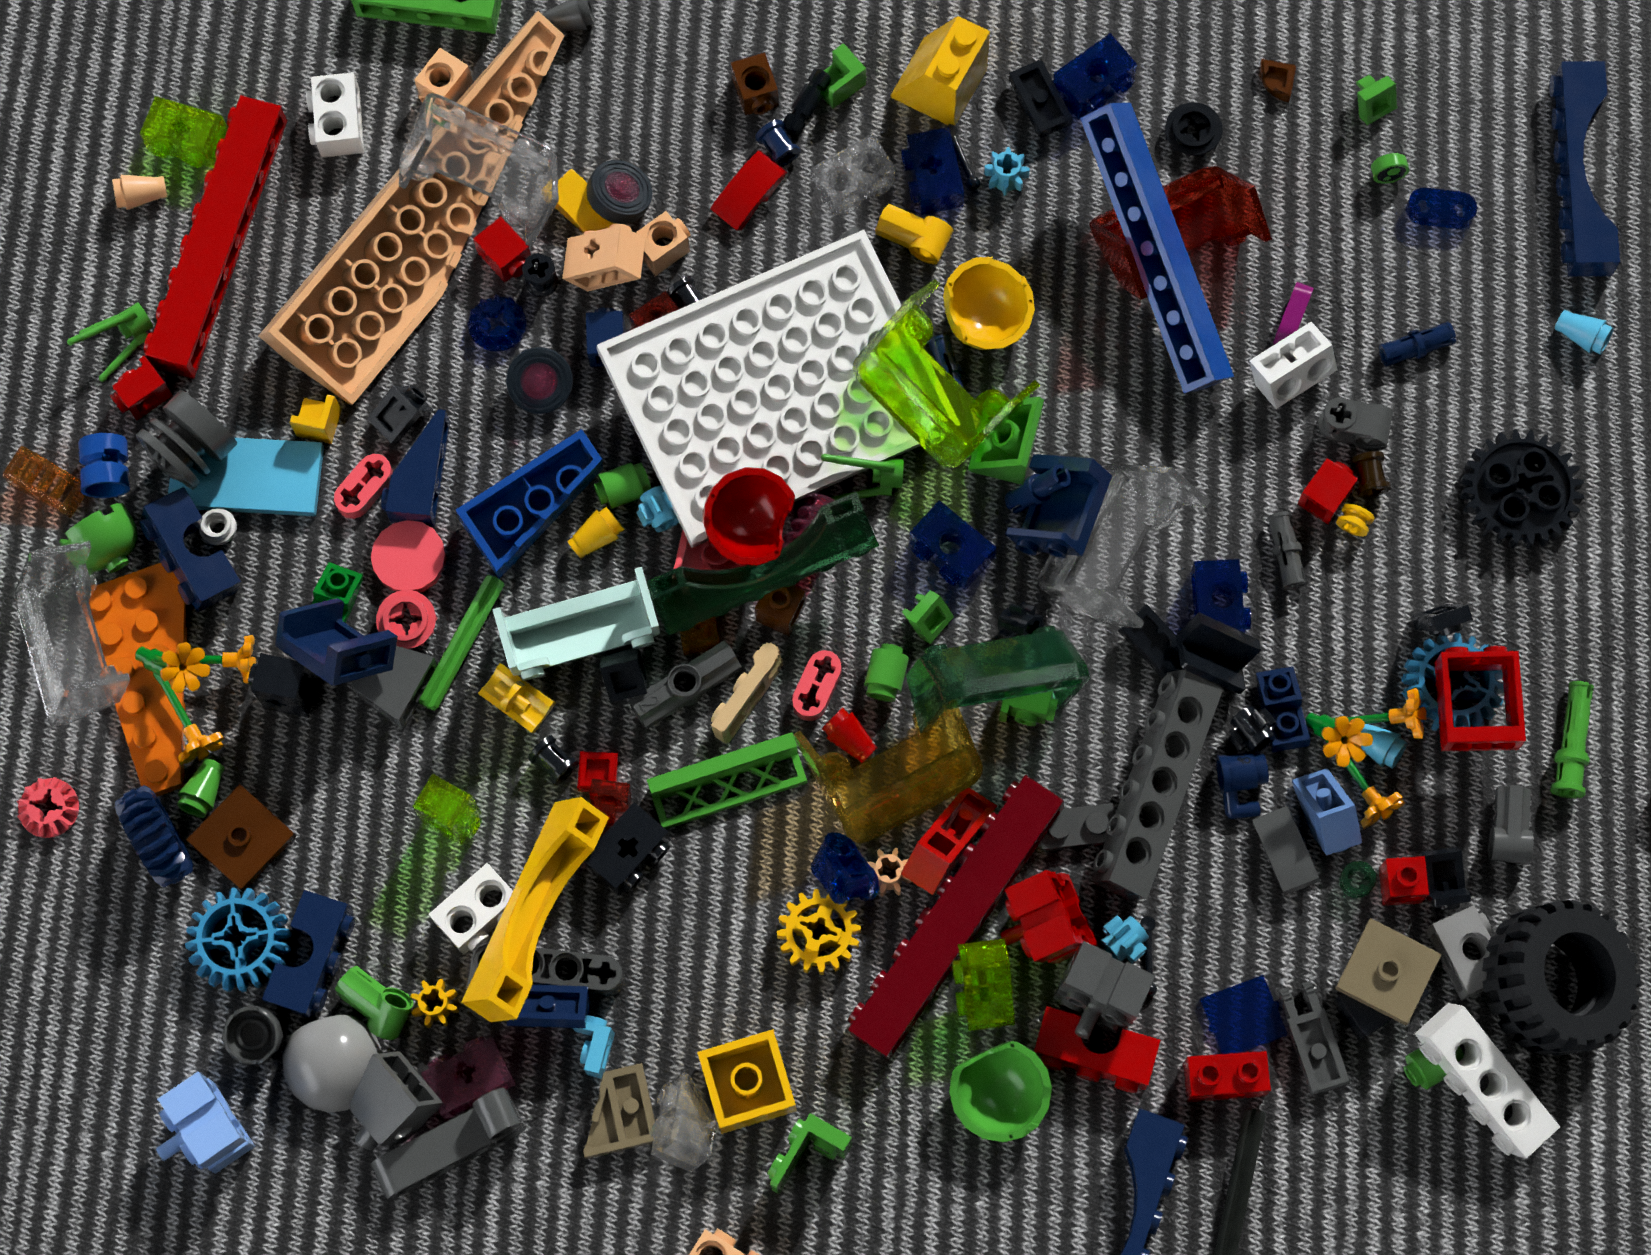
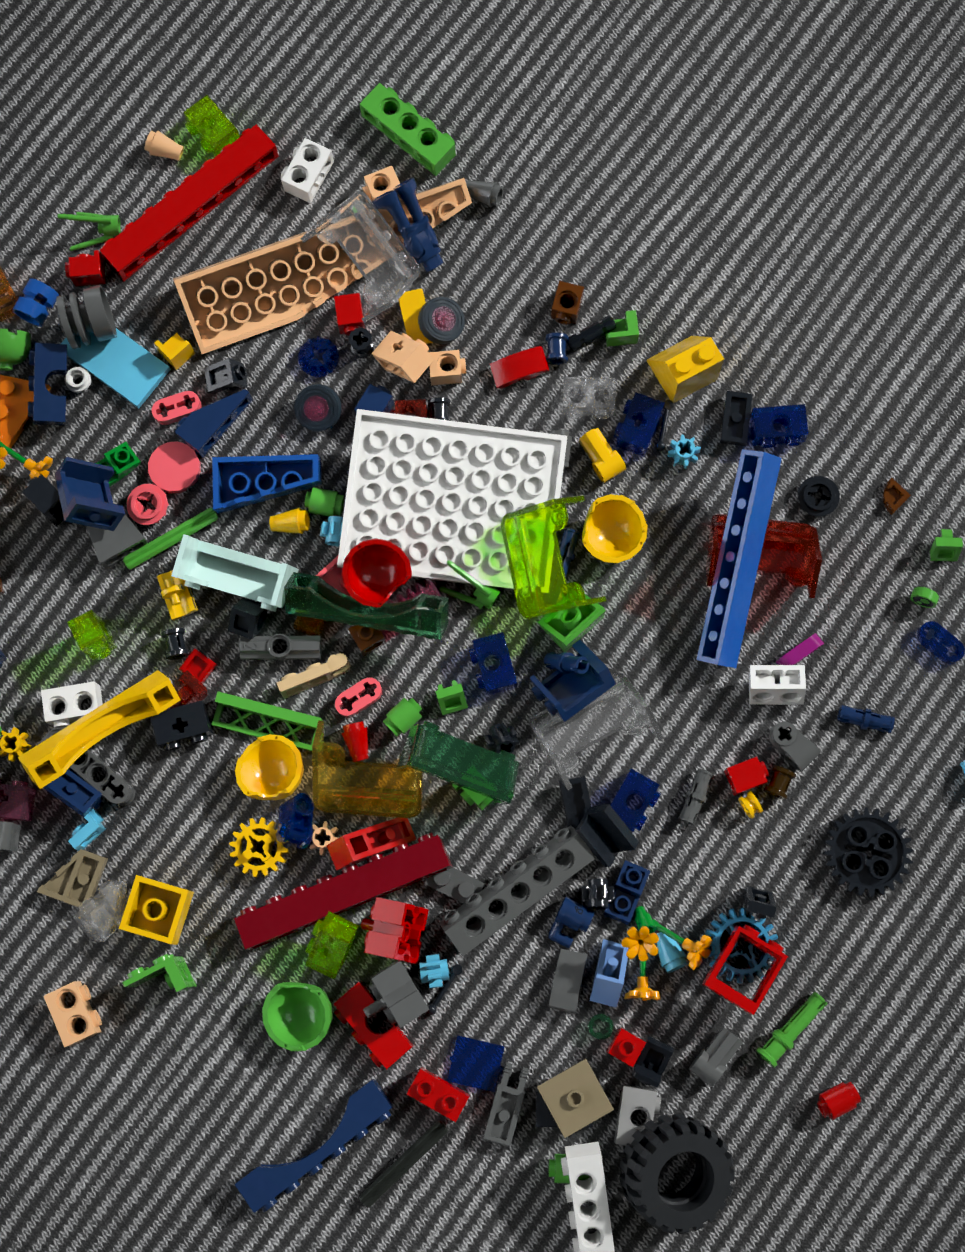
camera: 35 degrees right, 5 degrees up
(527, 109) = (418, 236): none -> dark blue piece
(772, 828) = (269, 768): none -> yellow cylinder

